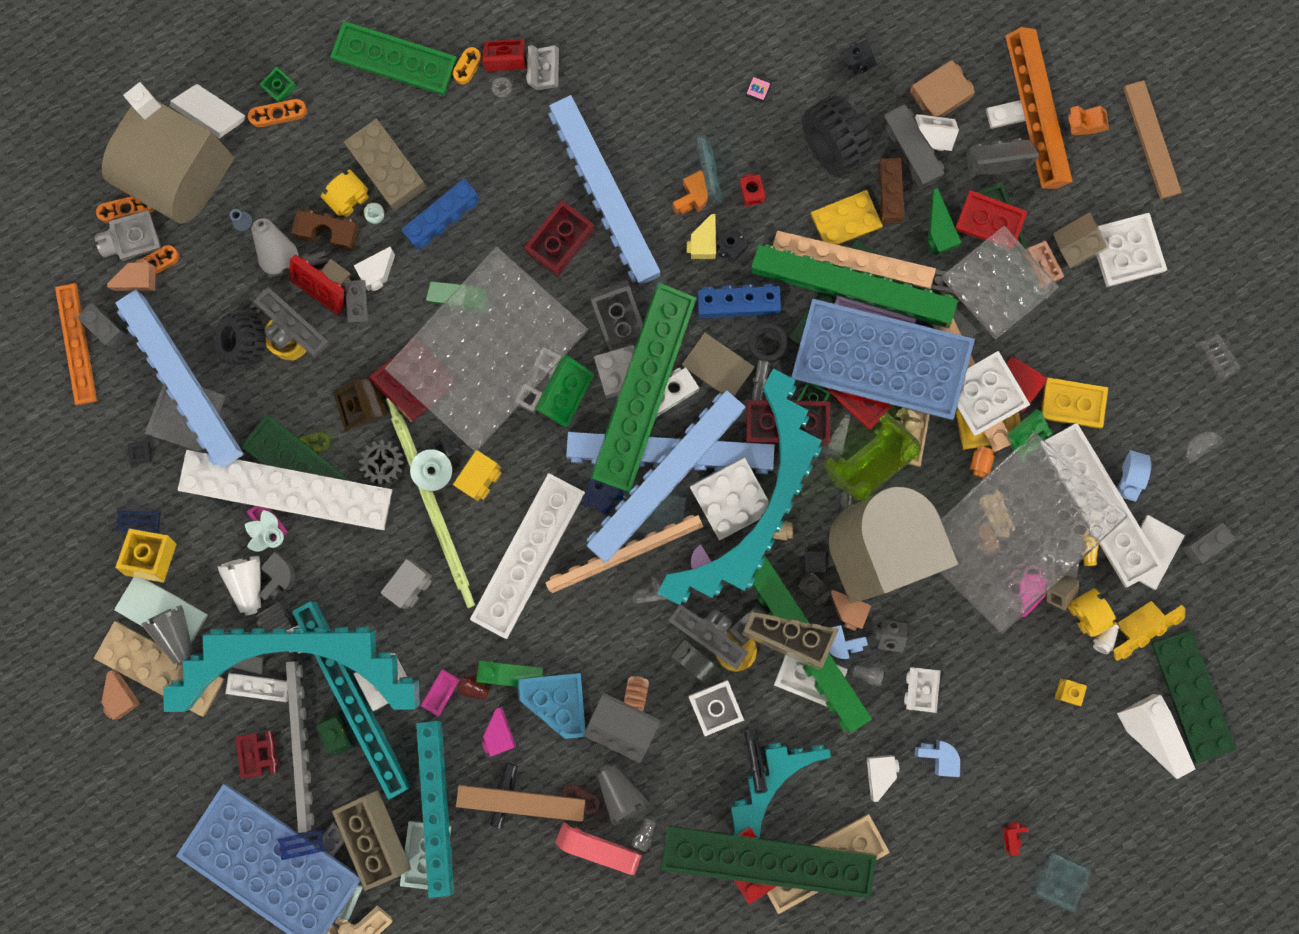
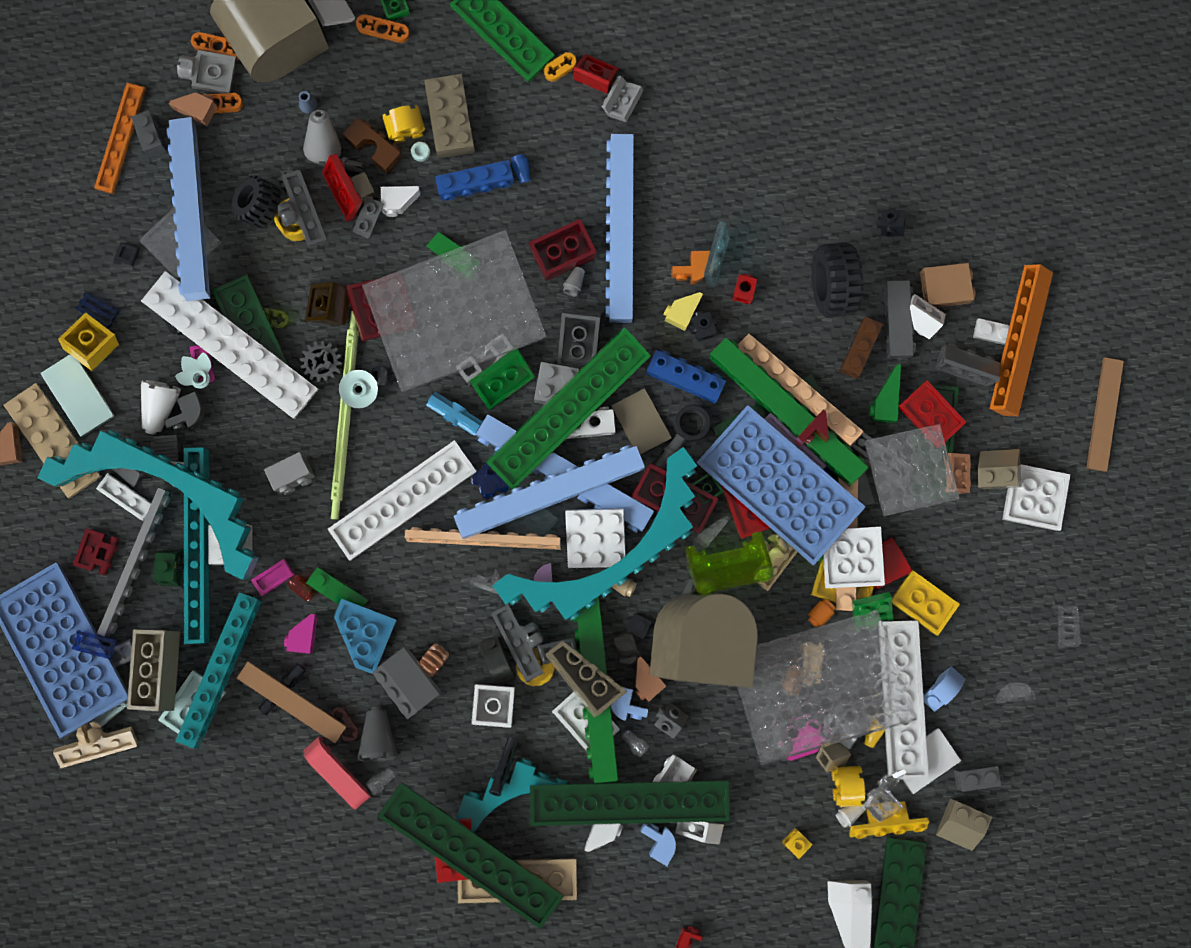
camera: 15 degrees right, 0 degrees up
(171, 634) = (75, 417): dark grey cone -> none
(478, 476) = (394, 413): yellow brick -> none
(479, 180) = (521, 167): none -> blue cone
(501, 81) = (579, 93): clear plate -> none
(535, 447) = (454, 413): none -> dark azure piece
(586, 266) = (574, 282): none -> light grey cone
(758, 89) = (793, 207): tile -> none
(847, 219) = (812, 353): yellow plate -> none
(891, 285) = (817, 426): none -> dark red slope
(893, 734) = (629, 803): none -> dark green plate
(971, 726) = (702, 831): none -> white slope
(1088, 121) = (1057, 371): orange brick -> none
(1130, 611) = (881, 801): none -> clear bracket
(1218, 594) = (963, 825): none -> dark tan slope

